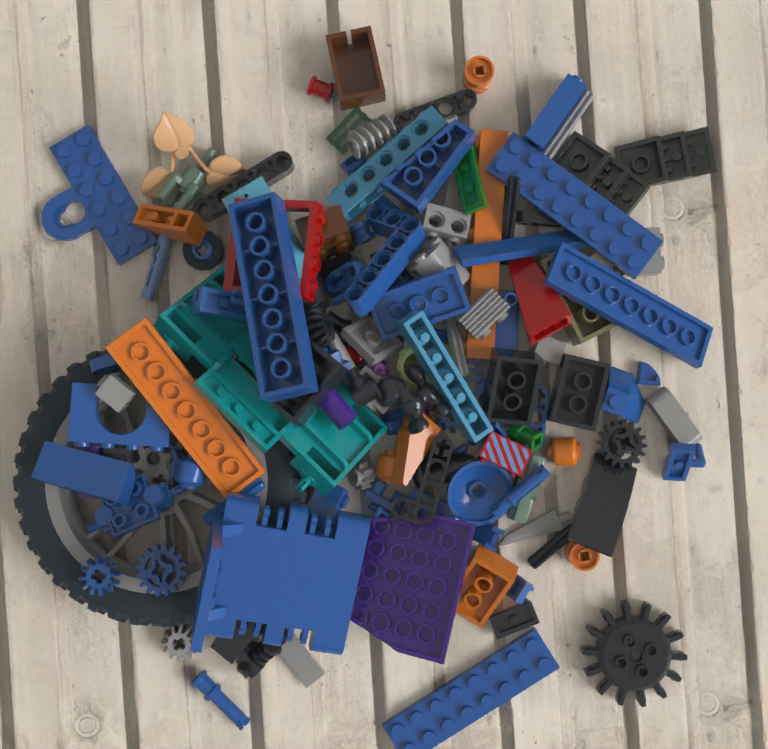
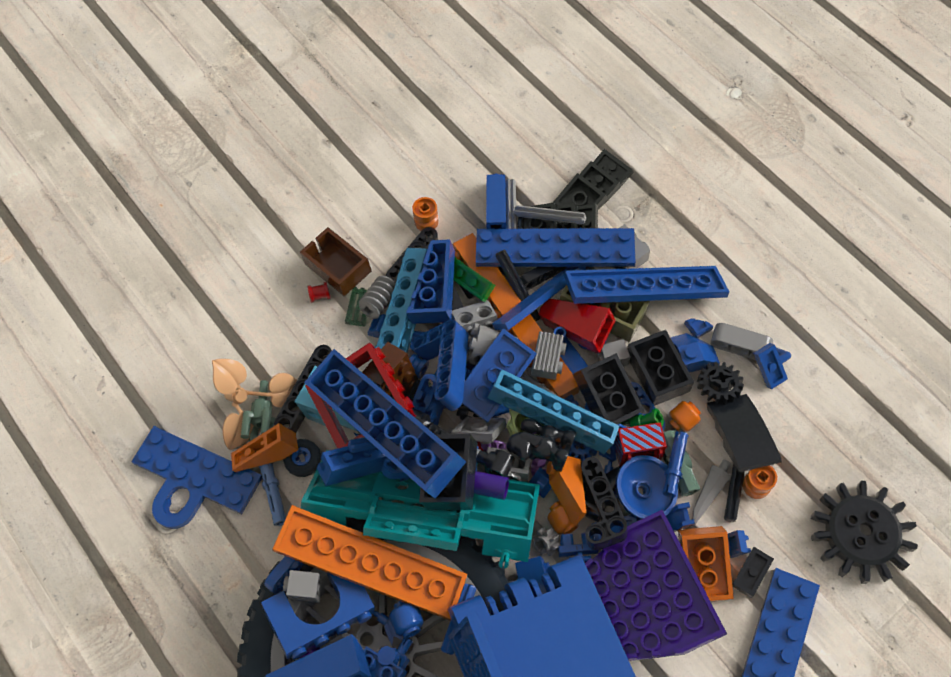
camera: 30 degrees left, 25 degrees down
(596, 165) = (550, 214): none -> light grey axle

